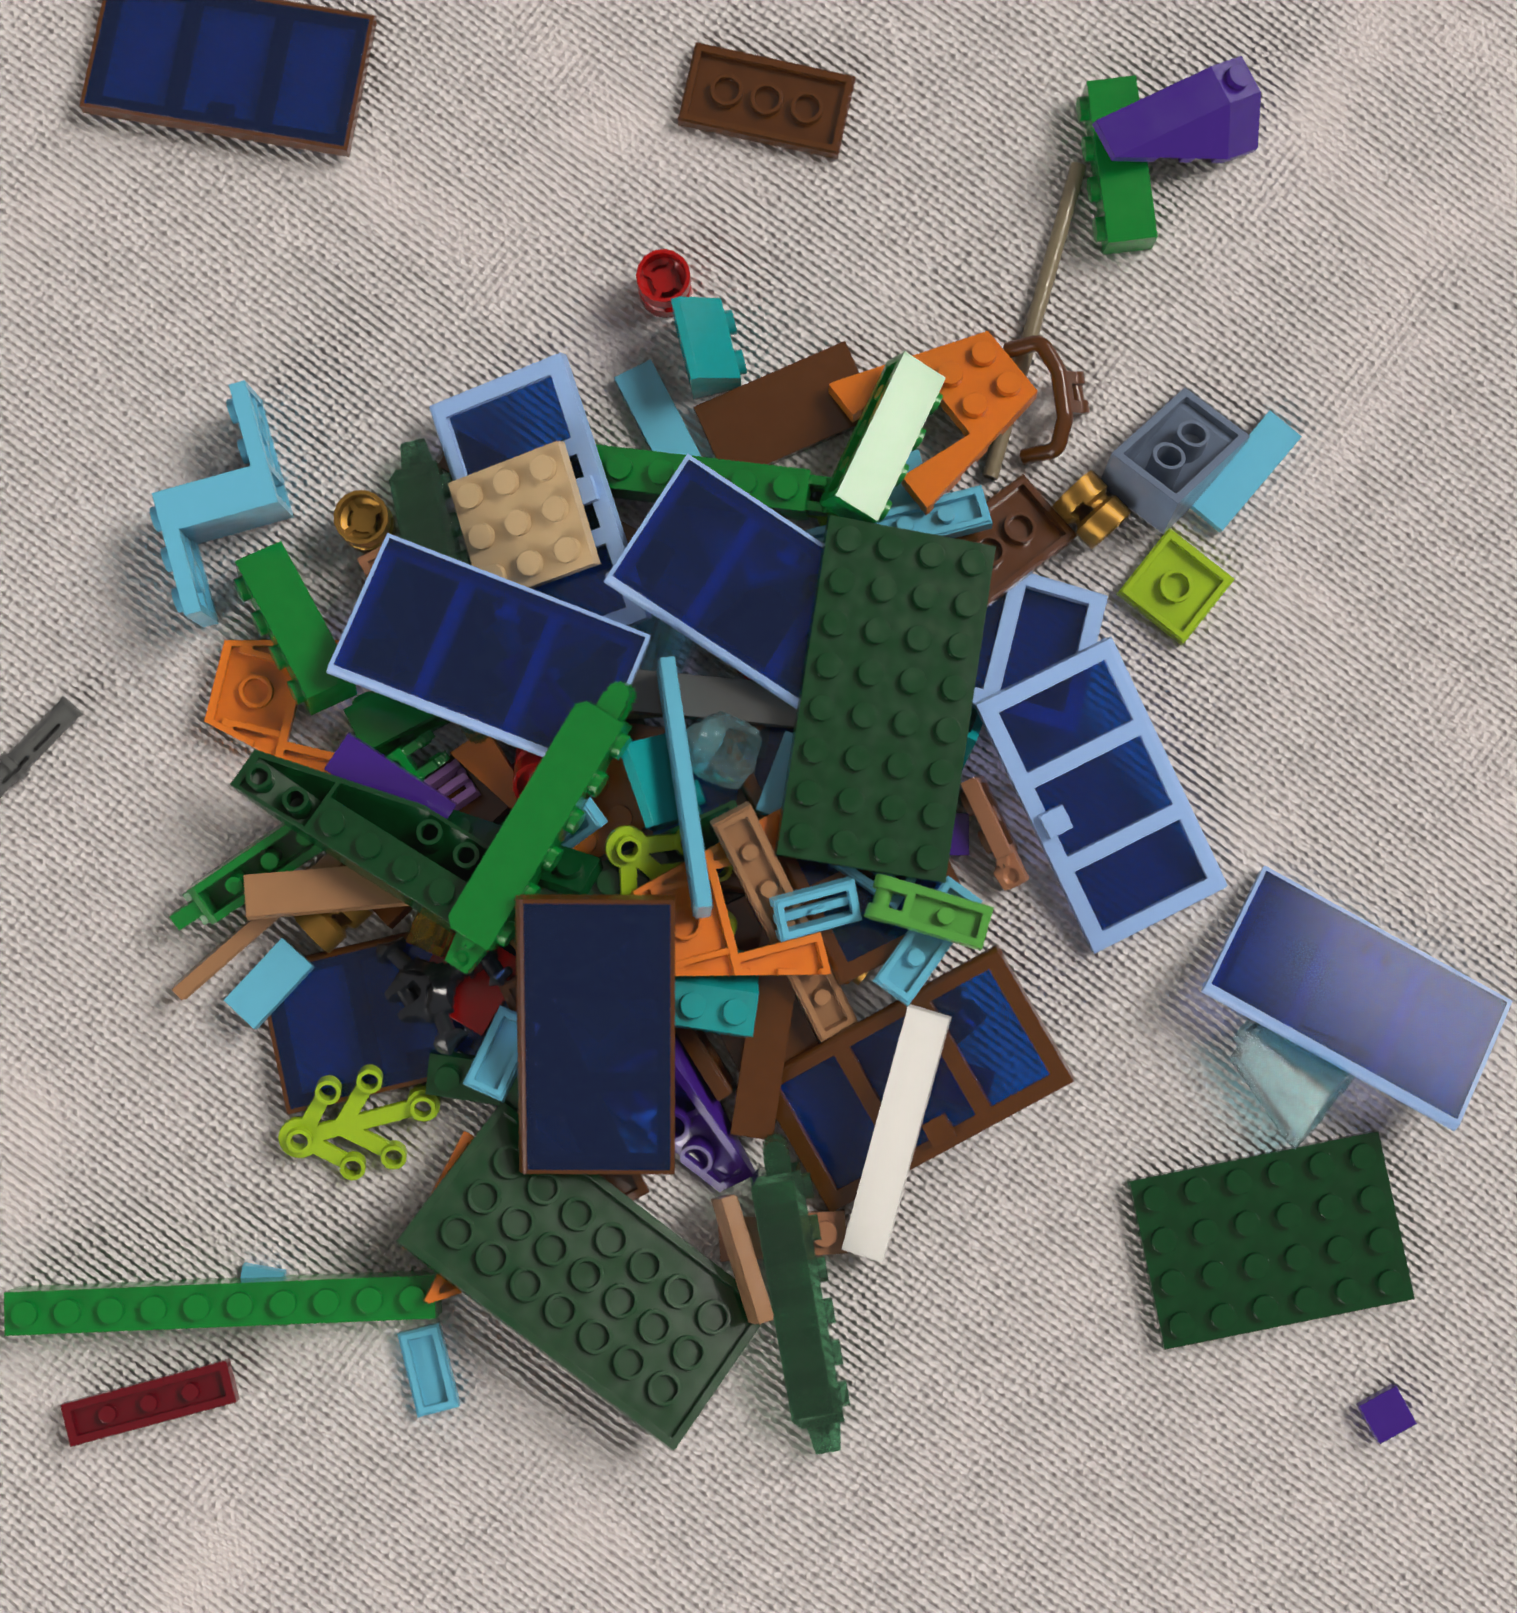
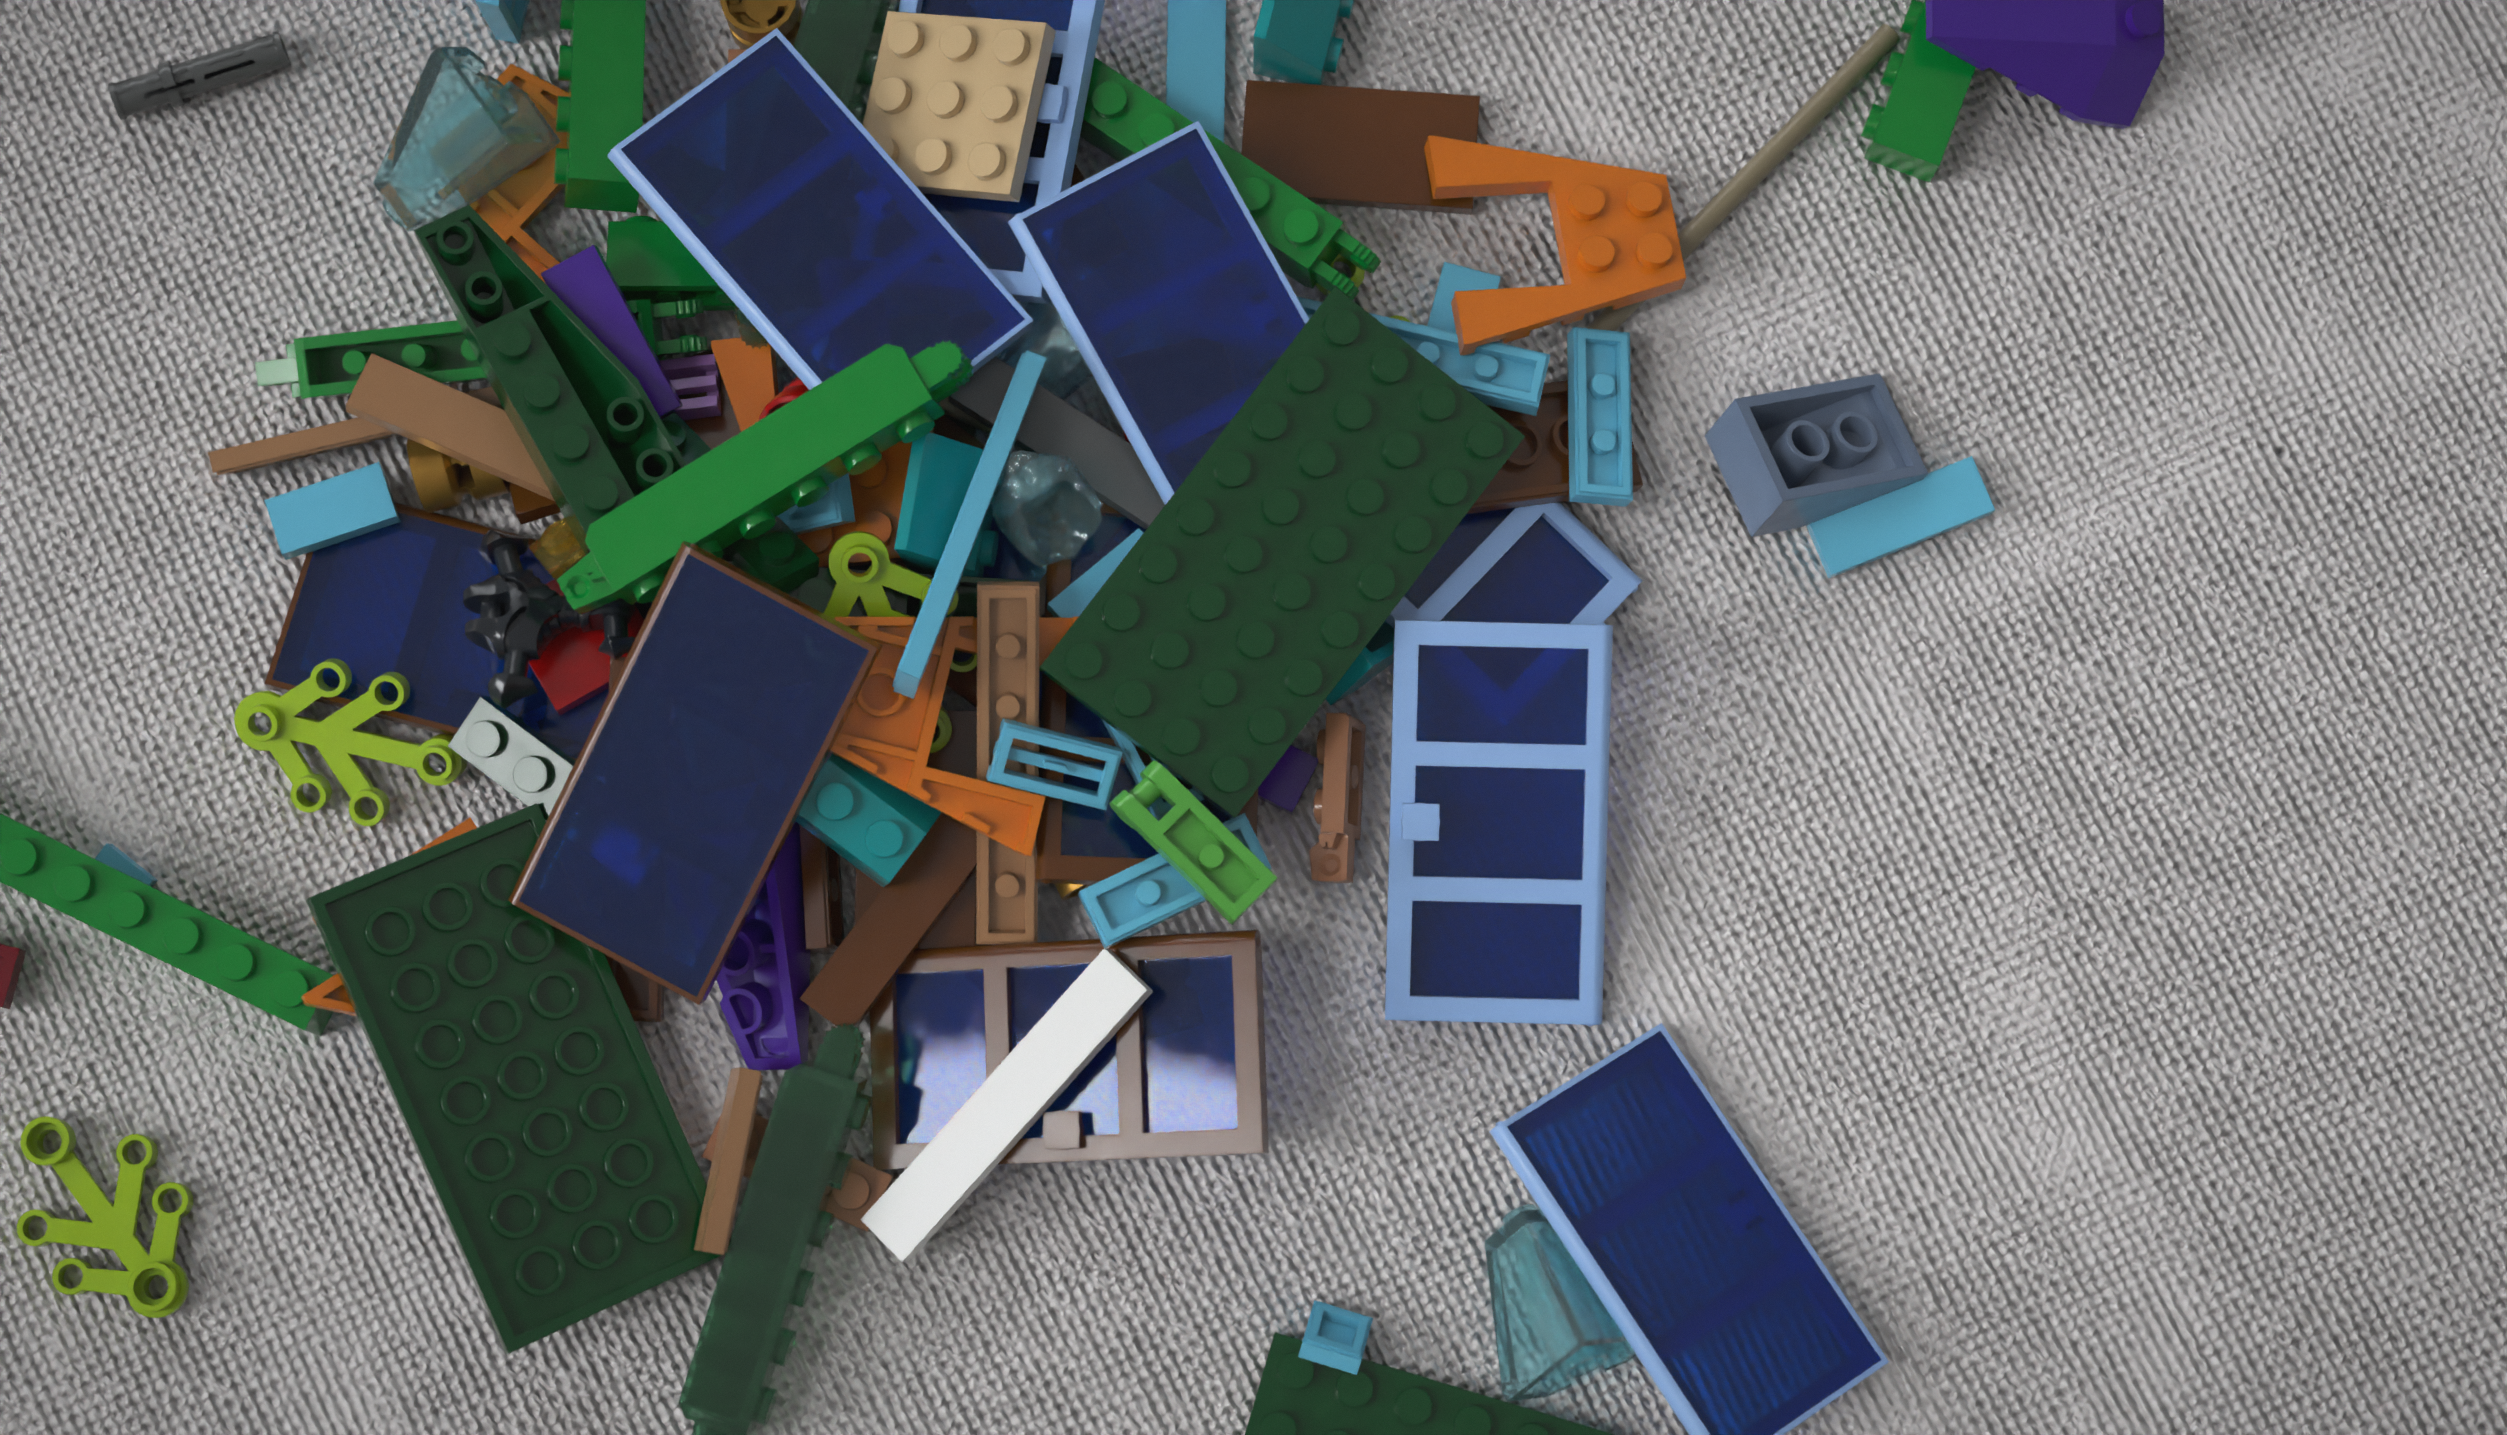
camera: 25 degrees right, 5 degrees down
(220, 709) = (457, 140): none -> clear light blue slope
(378, 1498) = (112, 1224): none -> lime plant
(429, 1369) = (264, 1098): medium azure tile -> none
(496, 1059) = (549, 749): medium azure tile -> none
(883, 440) = (1456, 234): brick -> none
(1029, 507) = (1599, 417): none -> medium azure tile
(1066, 391) = (1723, 300): reddish brown piece -> none
(1095, 524) = (1677, 461): pearl gold wheel -> none
(1168, 1165) = (1335, 1337): none -> medium azure tile
(1175, 586) = (1735, 615): lime tile -> none

